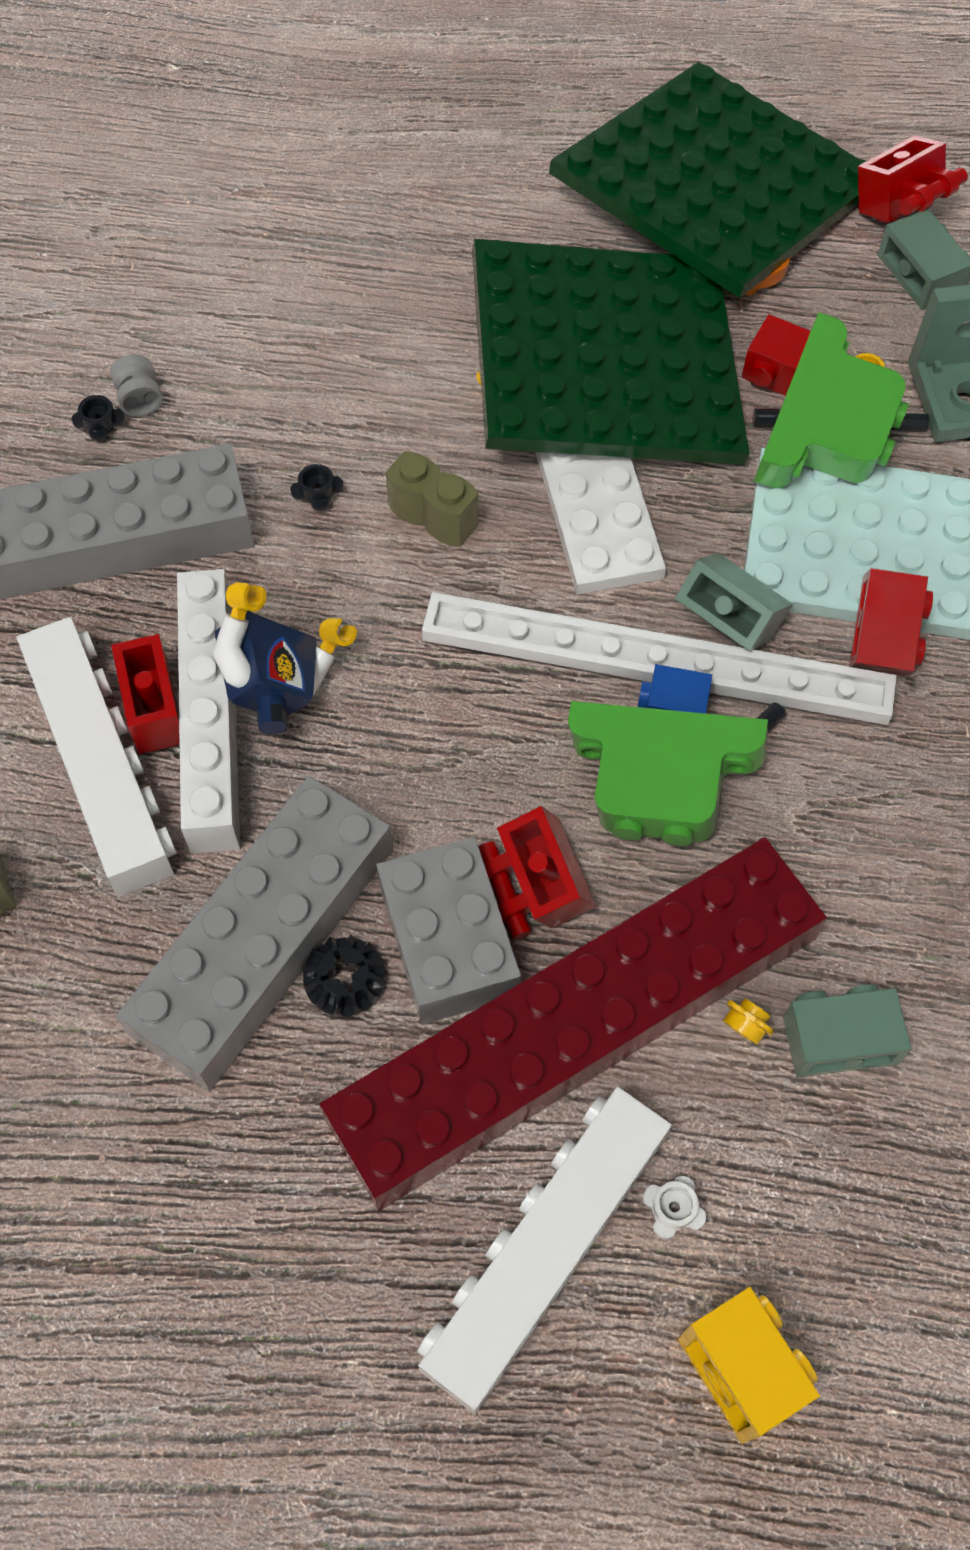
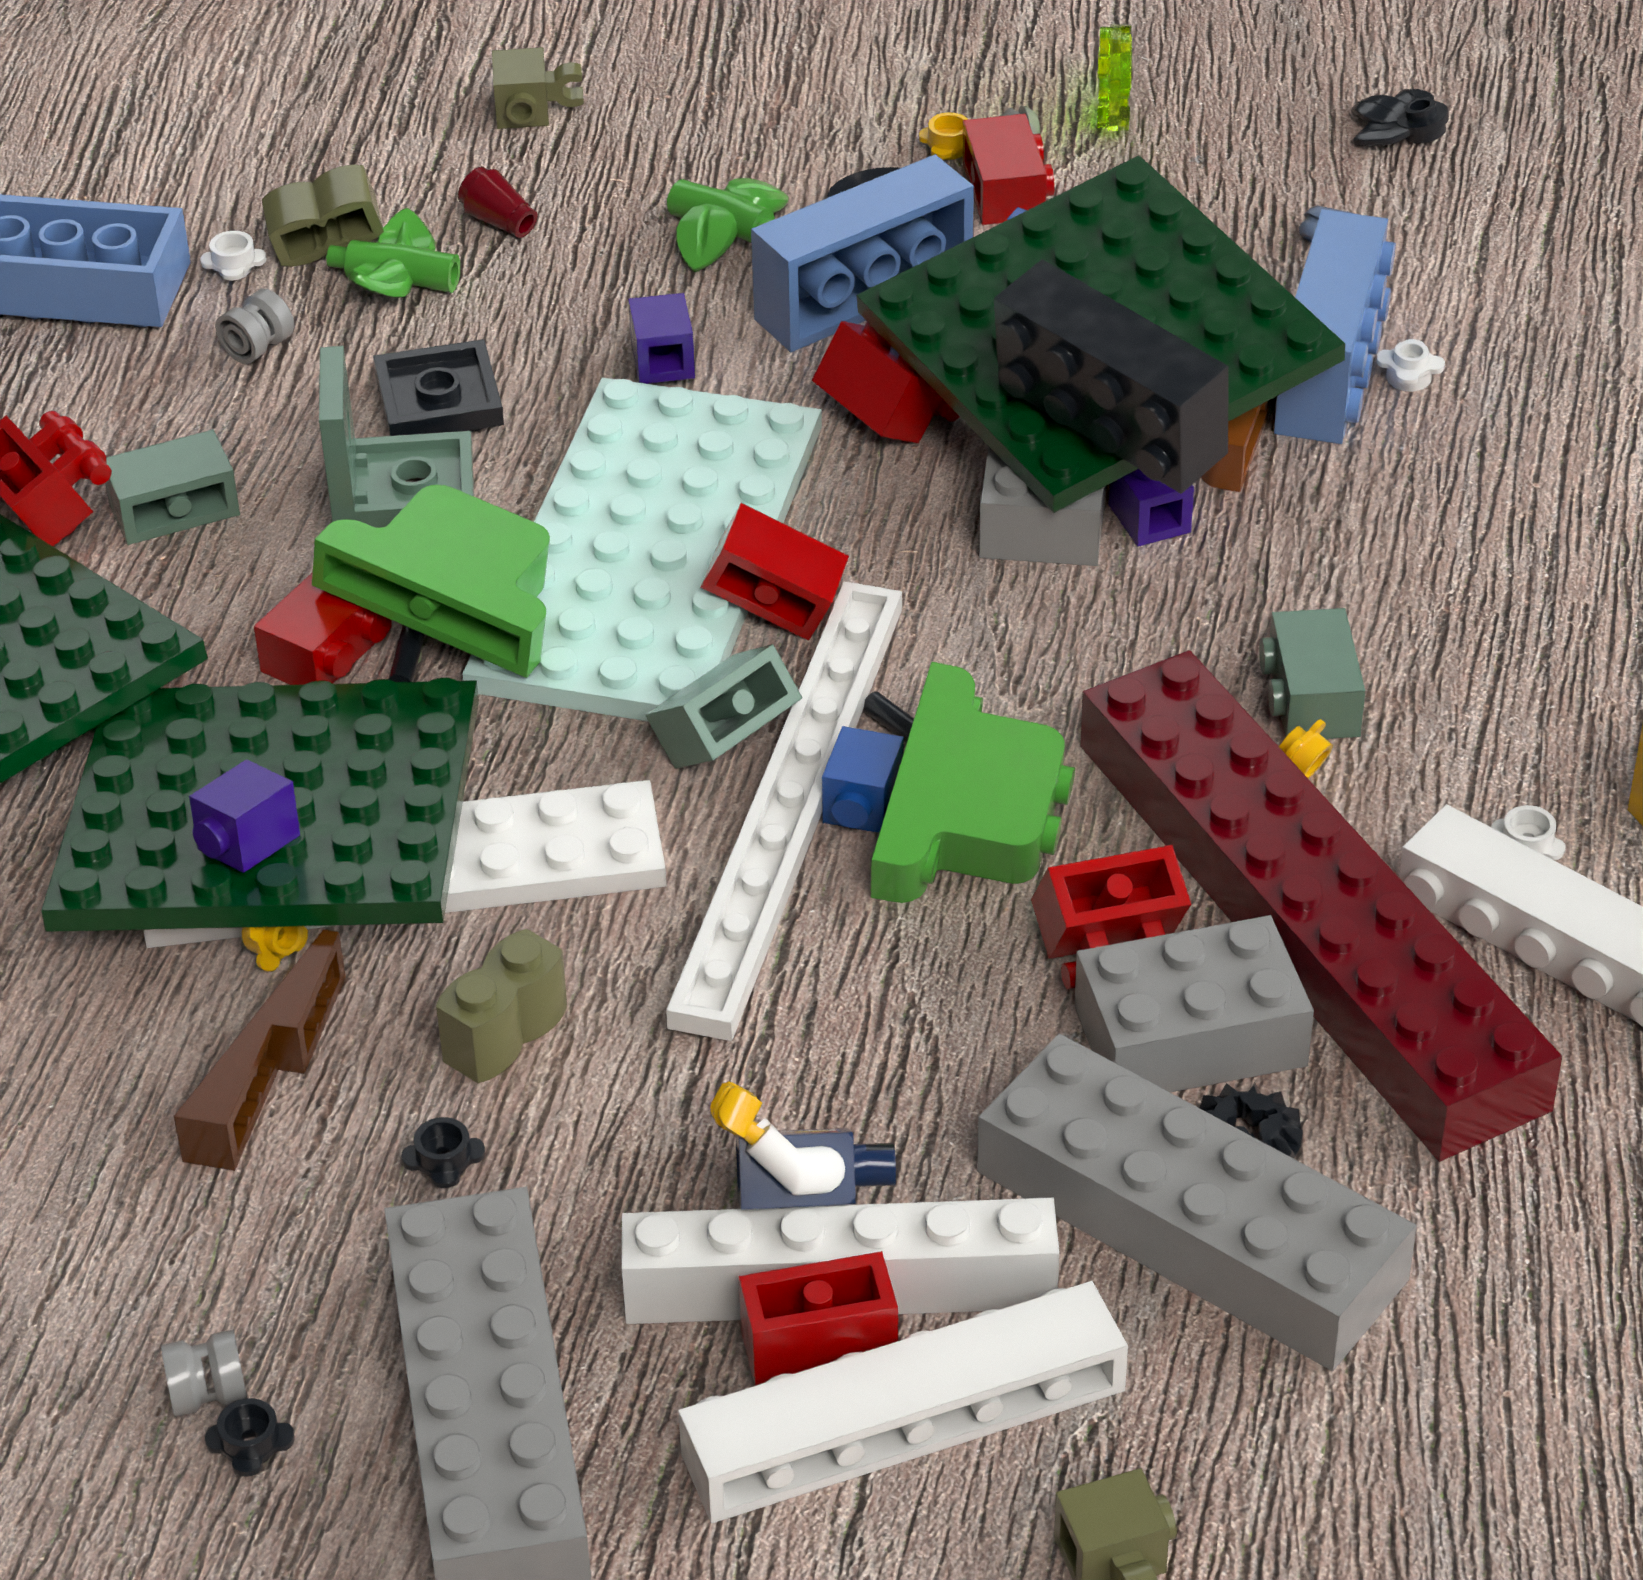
camera: 85 degrees left, 20 degrees down
(413, 389) = (280, 1036): none -> reddish brown slope
(543, 314) = (244, 815): none -> dark purple brick

